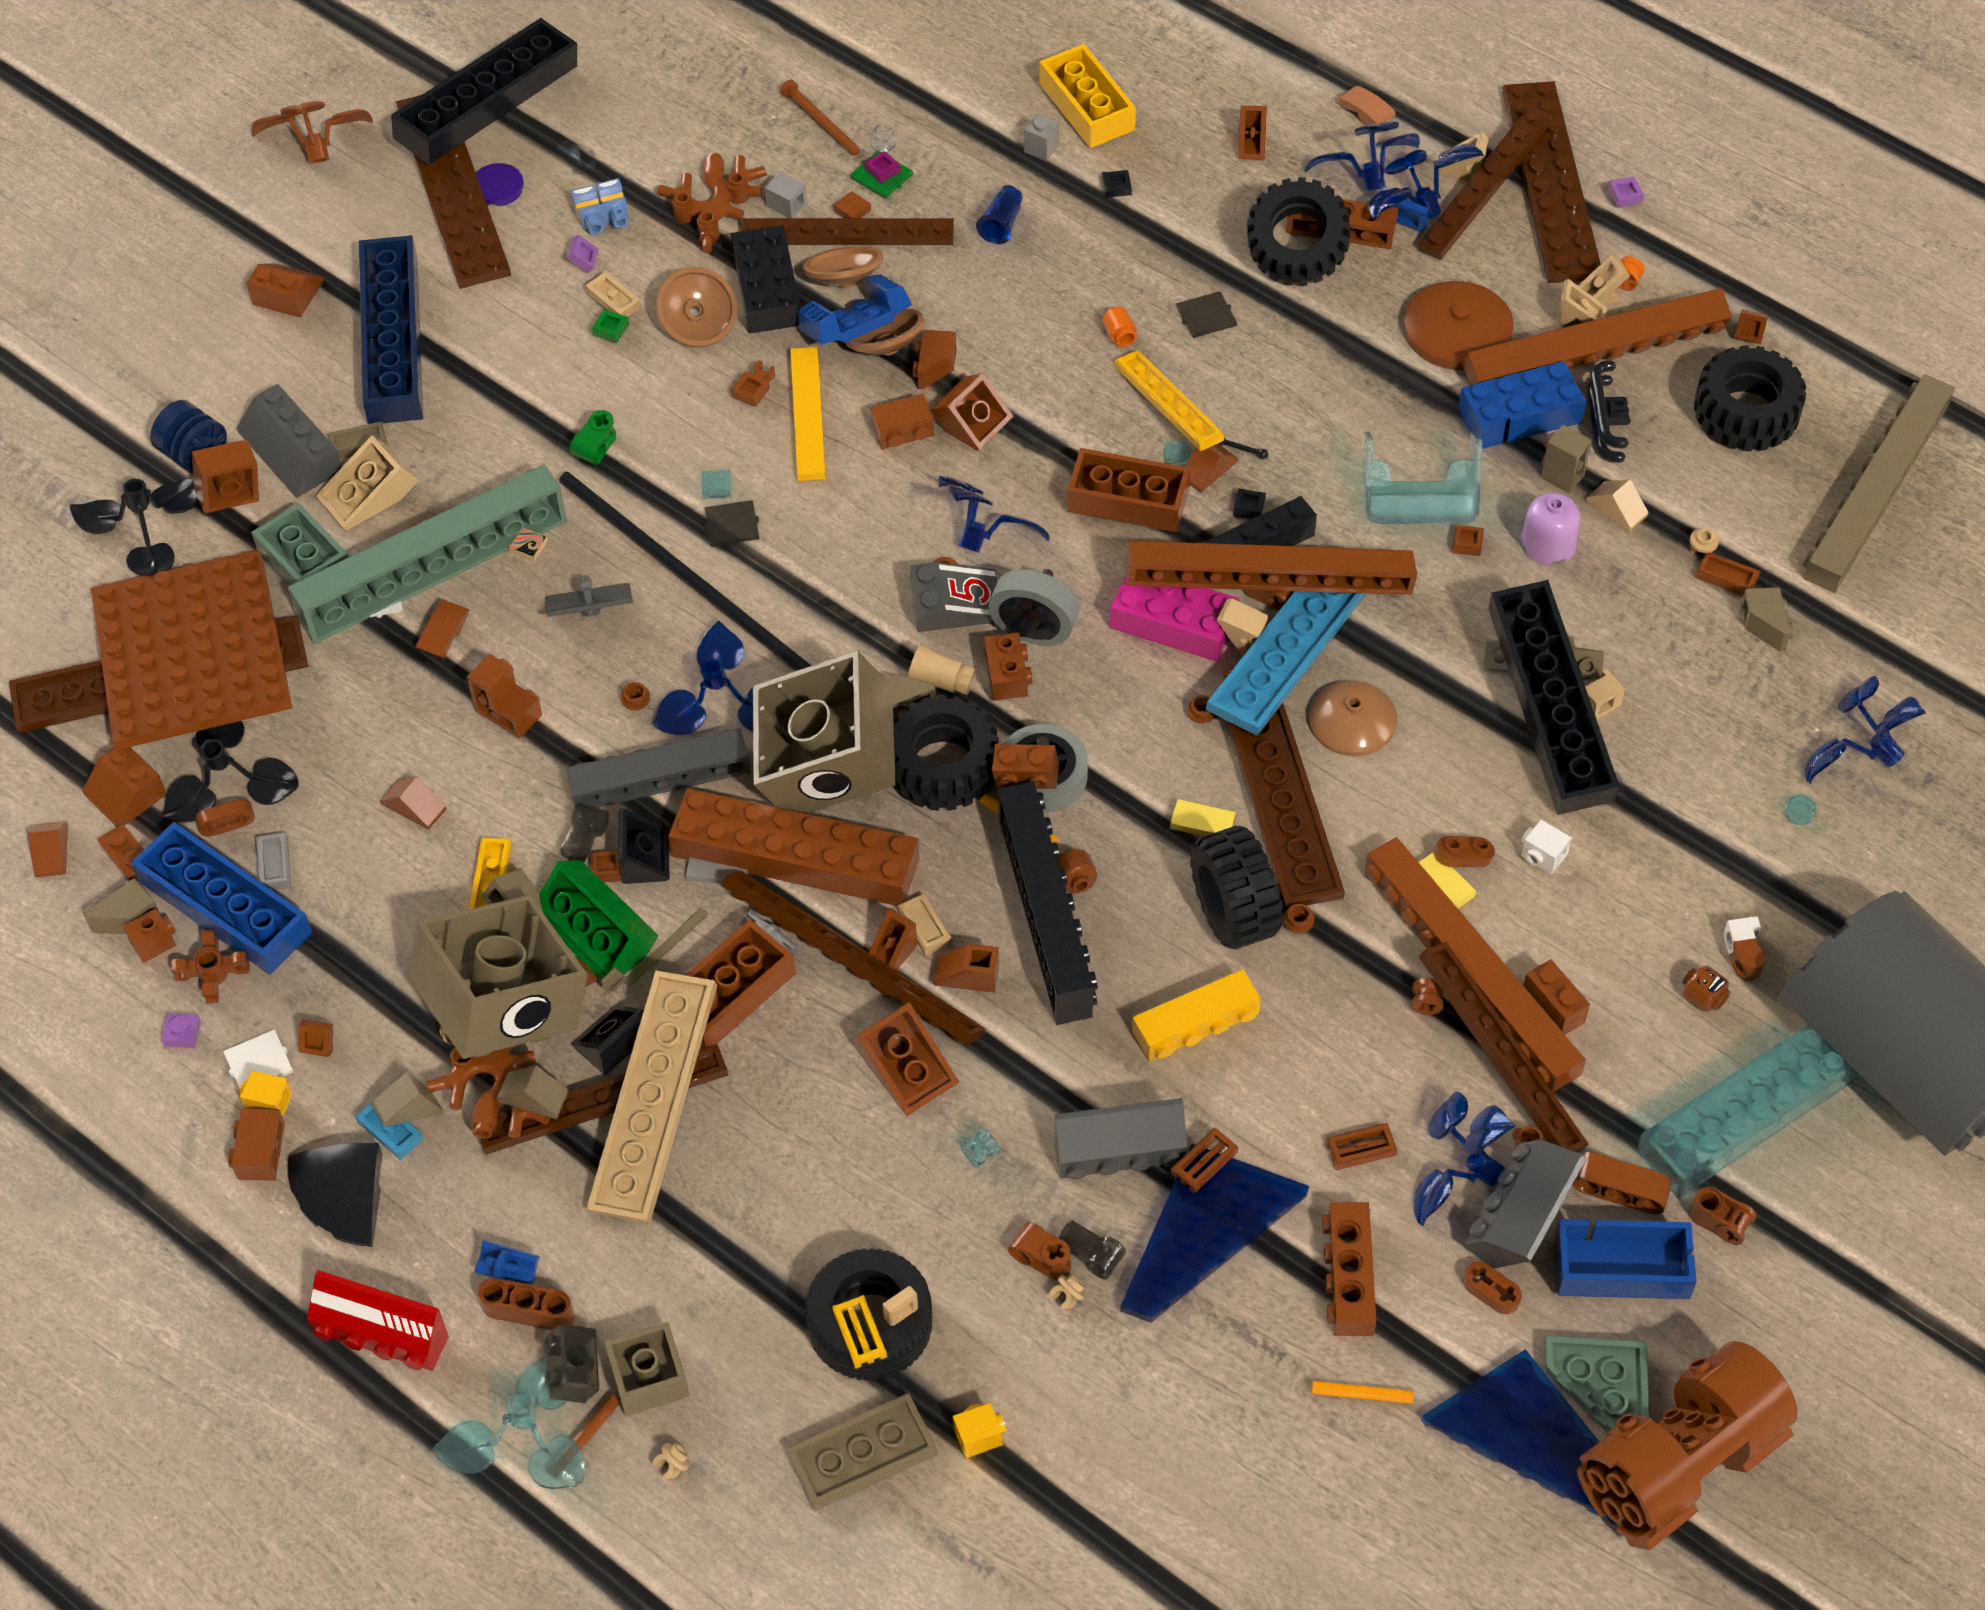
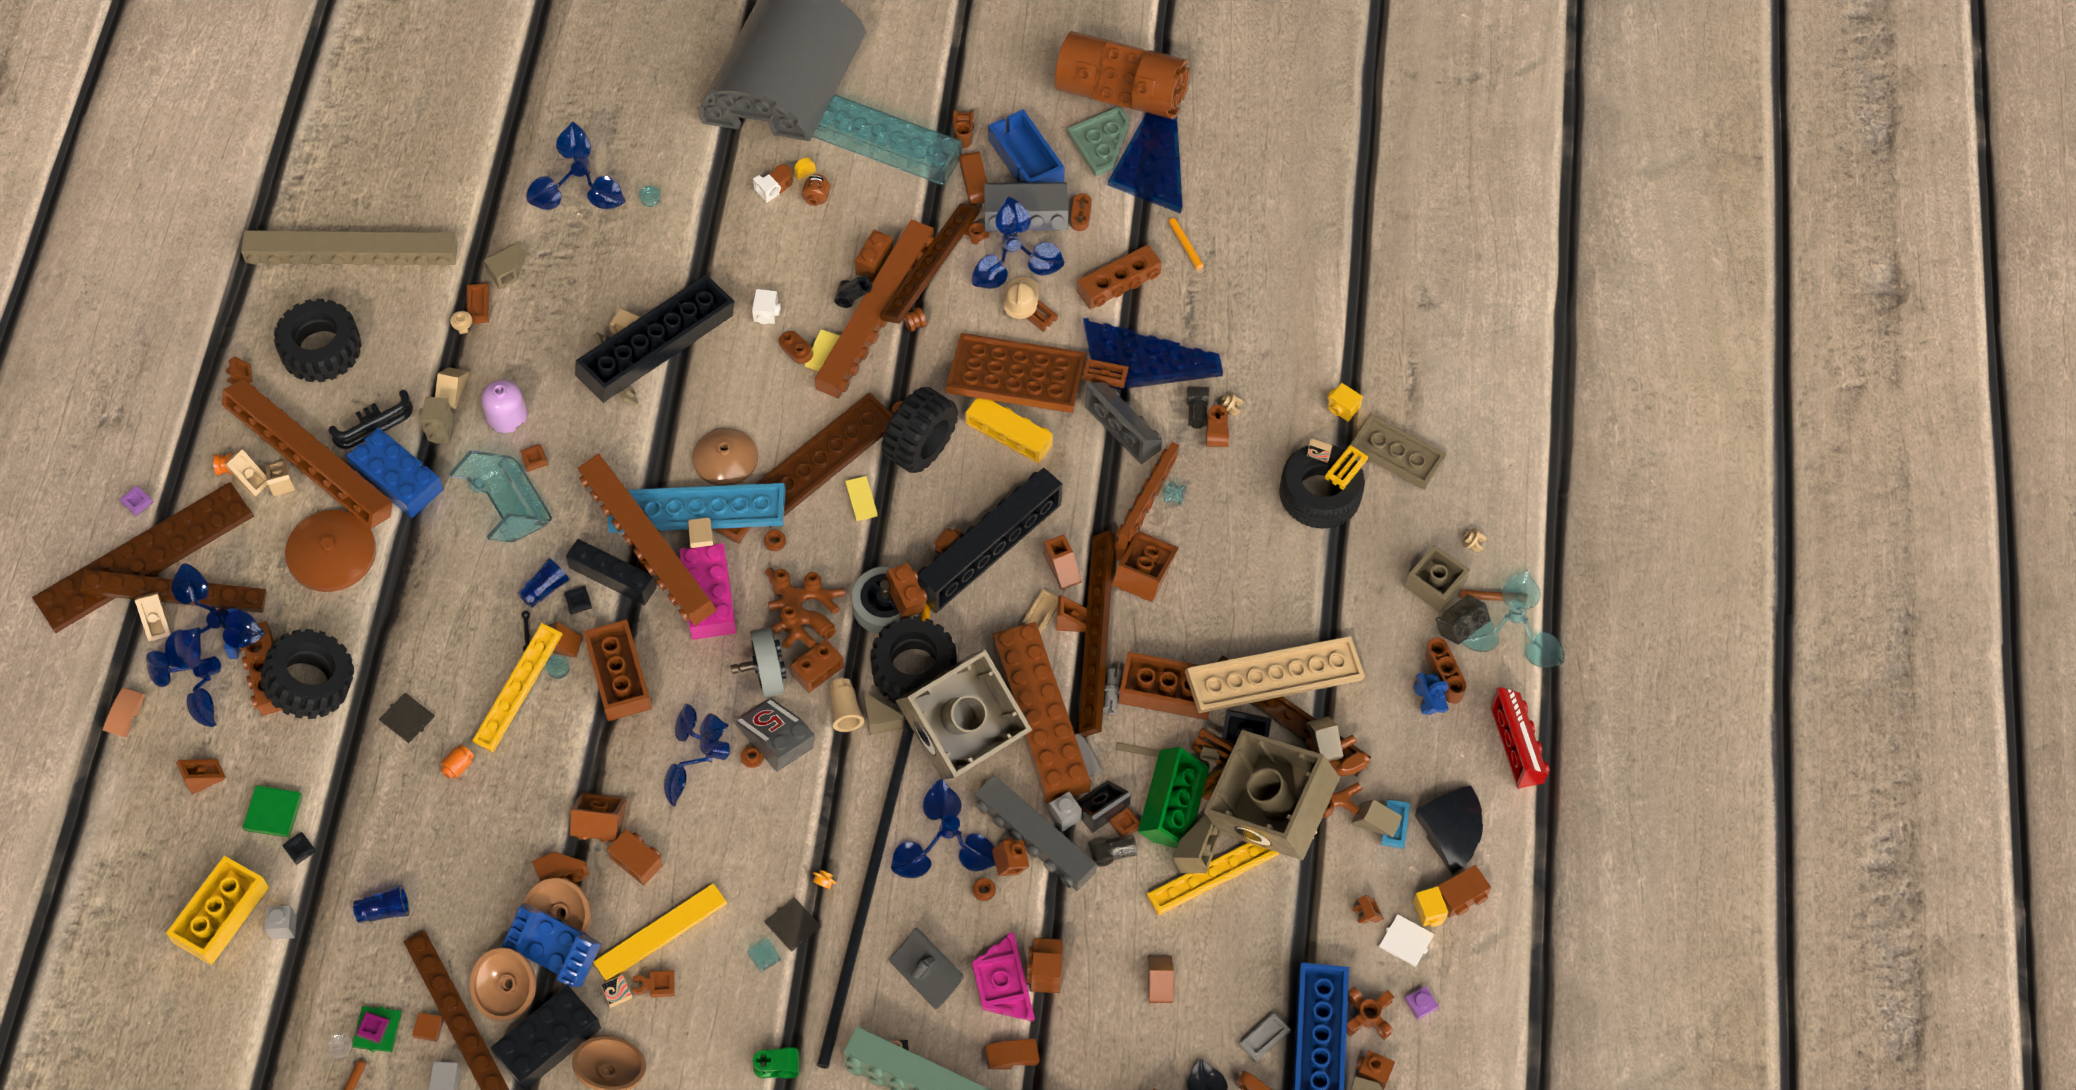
camera: 125 degrees left, 5 degrees up
(534, 657) = (1002, 981): none -> dark pink wing
(618, 999) = (1199, 740): none -> dark orange tile
(646, 728) = (1010, 857): none -> dark orange brick
(659, 804) = (1065, 811): none -> light grey brick
(755, 563) = (823, 879): none -> light orange plate
(774, 354) = (616, 991): none -> tile
(991, 1108) = (1144, 501): none -> dark orange wing
(1111, 688) = (794, 615): none -> dark orange plant
(1172, 177) = (272, 811): none -> green tile
(1267, 1056) = (1016, 372): none -> dark orange plate
(1287, 475) = (543, 583): none -> clear blue plant
(1390, 1135) = (1021, 298): none -> tan piece
(1510, 942) = (851, 290): none -> black piece
(1752, 994) = (804, 168): none -> yellow tile

